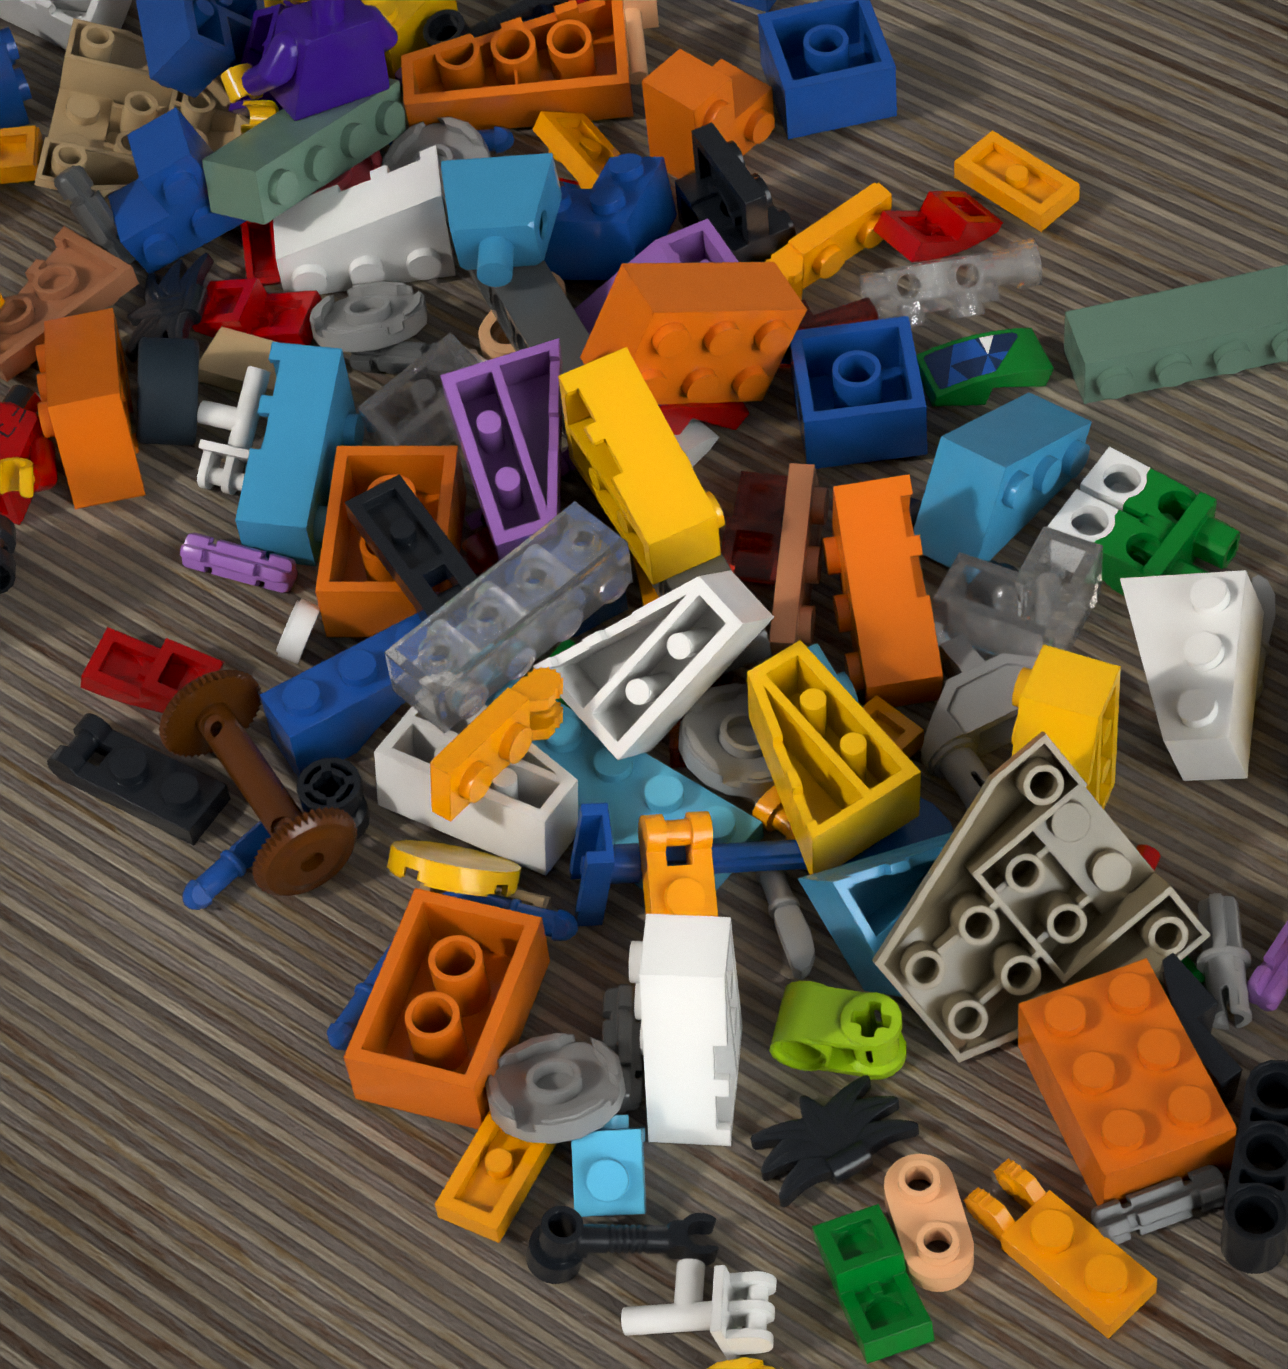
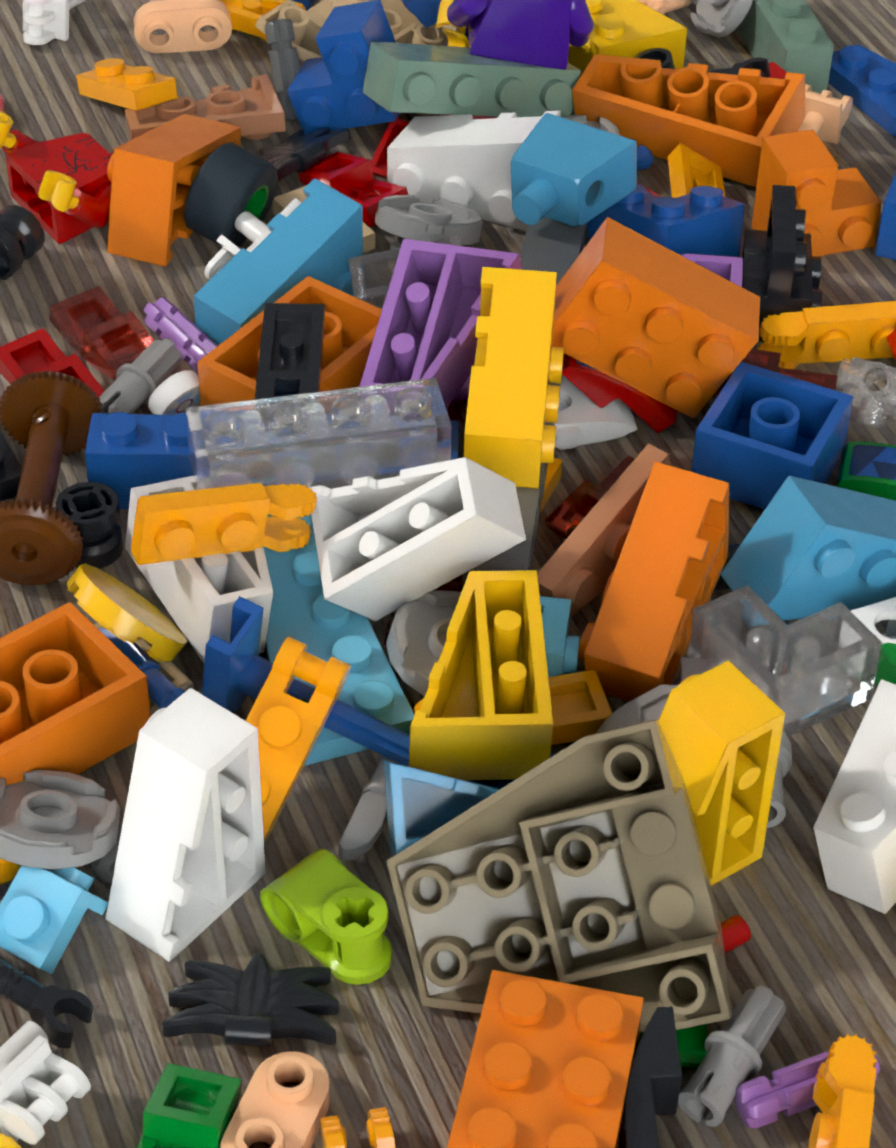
camera: 25 degrees right, 10 degrees down
(166, 605) = (100, 331): none -> clear red slope
(243, 629) = (139, 380): none -> light grey axle

